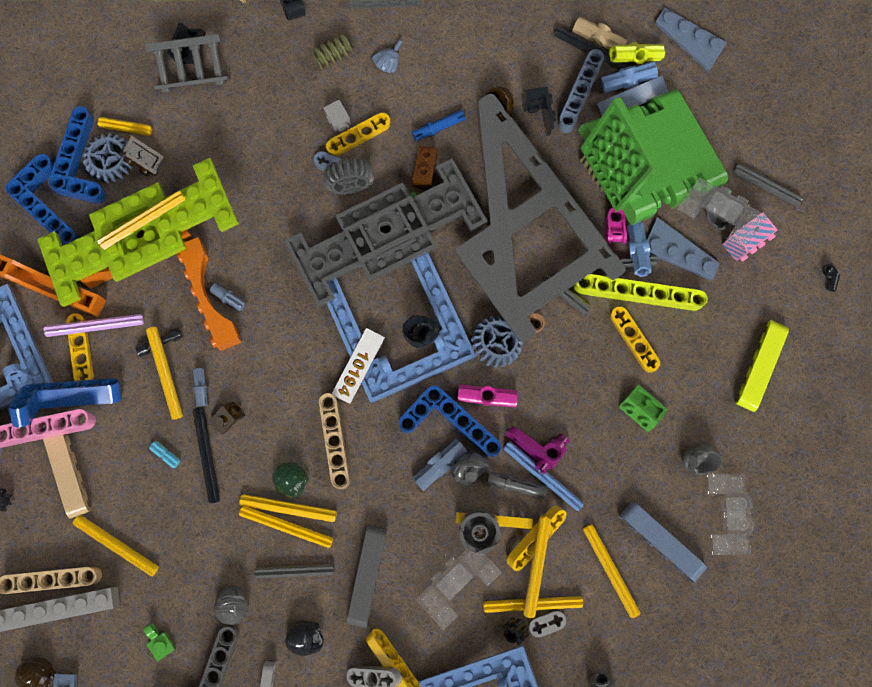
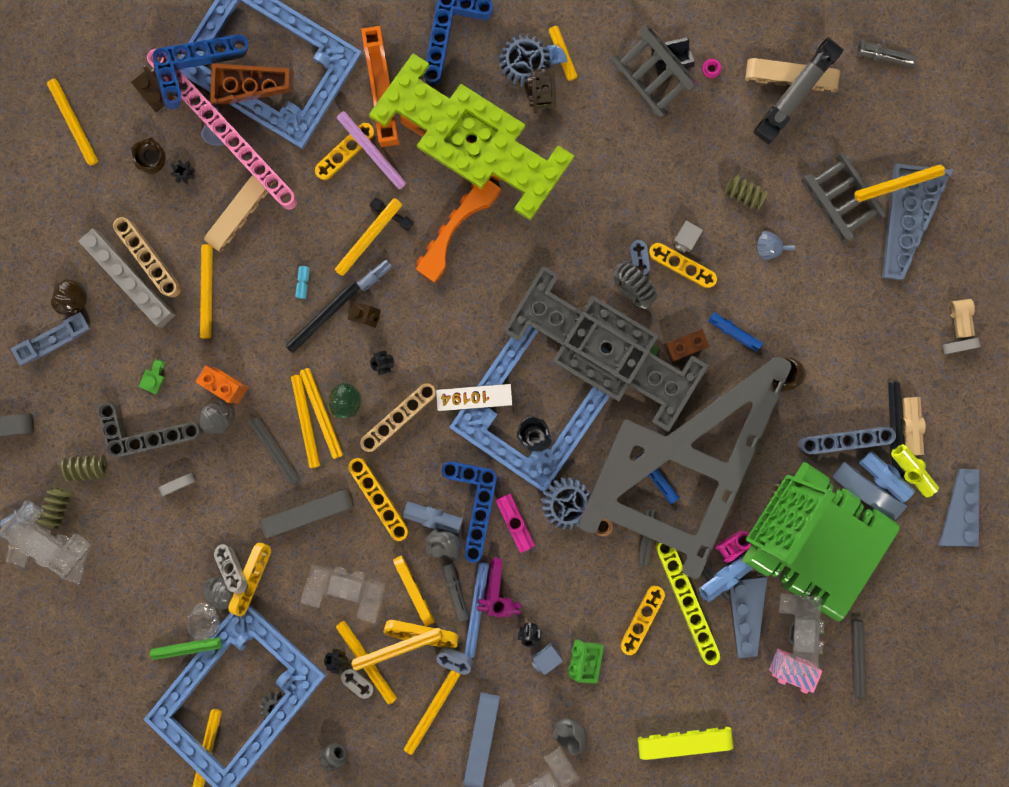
camera: 60 degrees right, 10 degrees up
(61, 394) = (298, 165): blue beam -> none
(65, 158) = (504, 30): blue beam -> none
(123, 130) = (557, 55): none -> medium blue tile
(141, 220) = (482, 135): yellow axle -> none
(203, 579) = (225, 385): none -> orange window
(216, 17) = (711, 62): none -> dark pink plate
(227, 296) = (465, 246): sand blue axle -> none
(278, 426) = (382, 362): none -> black gear
(304, 638) = (226, 493): black hair -> none
(384, 502) = (379, 508): none -> yellow beam
(473, 540) = (385, 585): dark grey brick -> none
(529, 255) = (663, 485): none -> blue pin
(540, 99) = (807, 404): black bracket -> none
(577, 522) = (454, 660): none -> sand blue beam
(592, 441) = (529, 634): none -> black gear
(622, 440) = (546, 659): none -> sand blue brick
(832, 276) = (806, 761): black arm -> none

